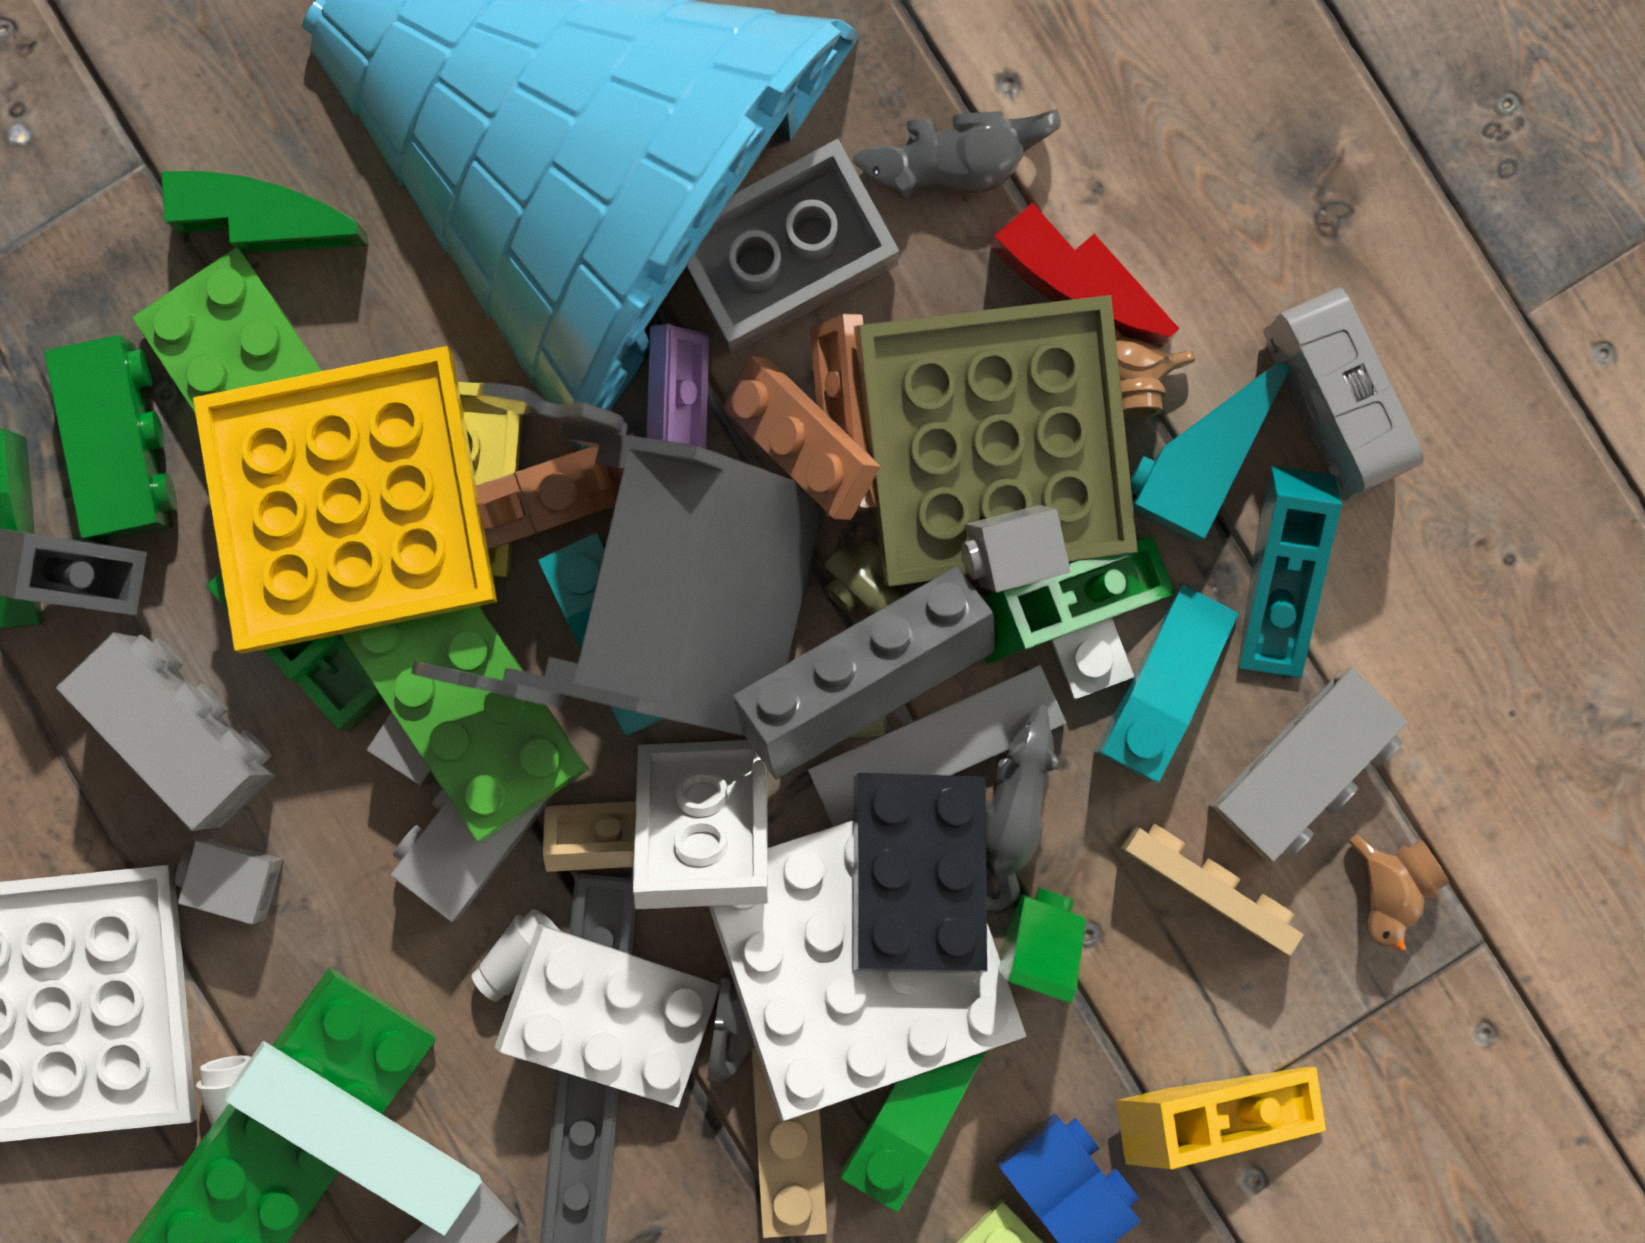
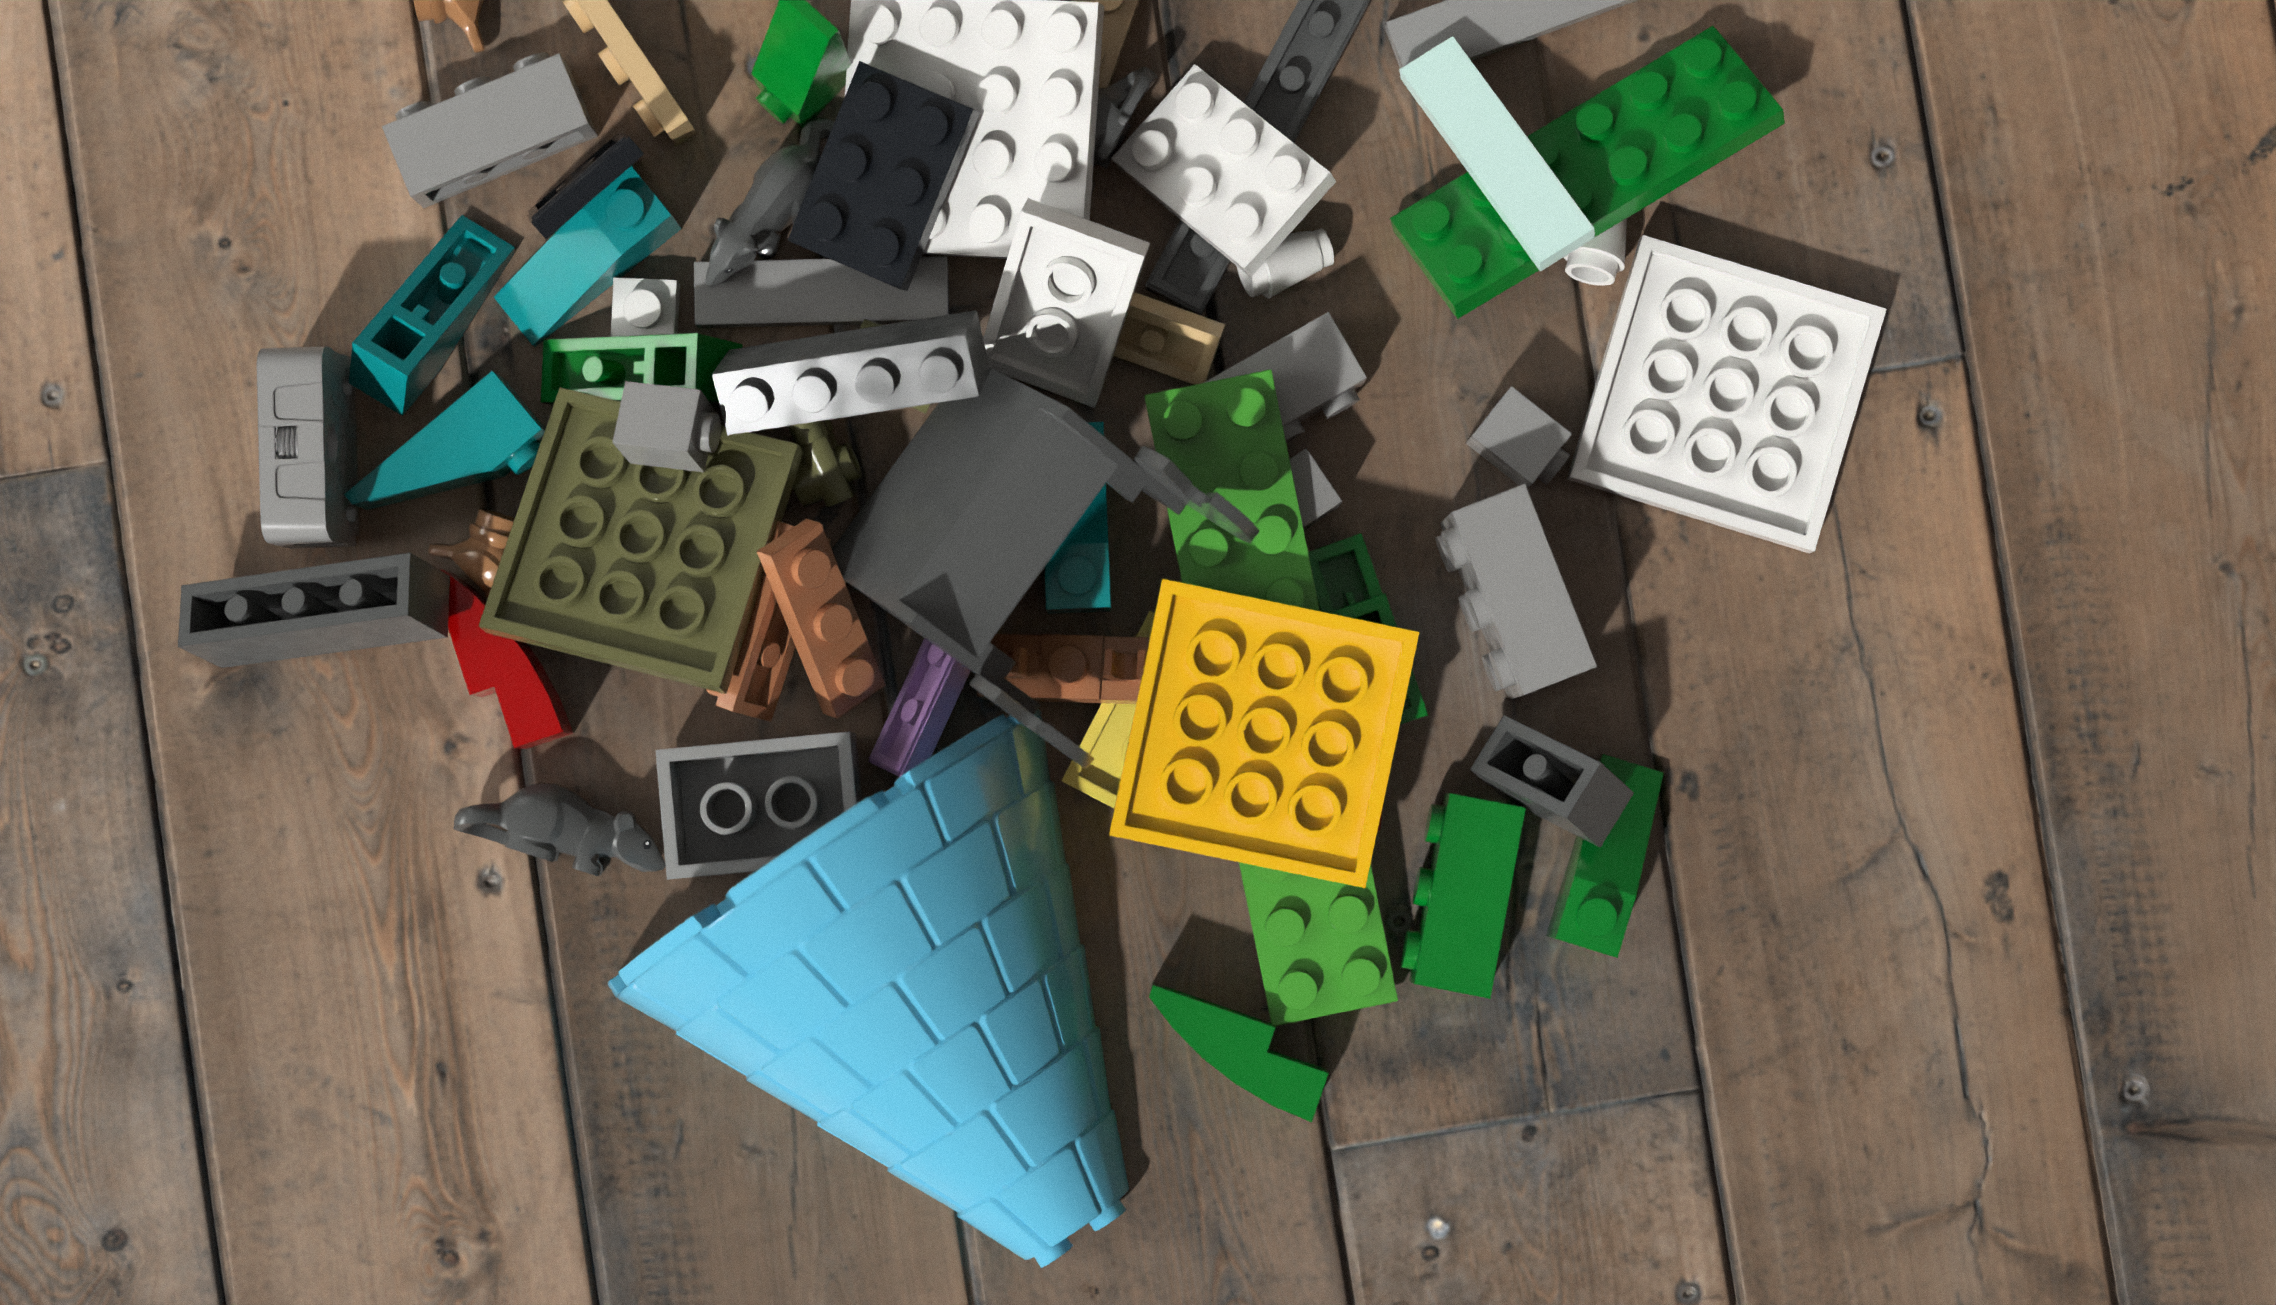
camera: 165 degrees left, 0 degrees up
(1195, 746) = (584, 184): none -> black tile
(1267, 247) = (314, 610): none -> dark grey brick

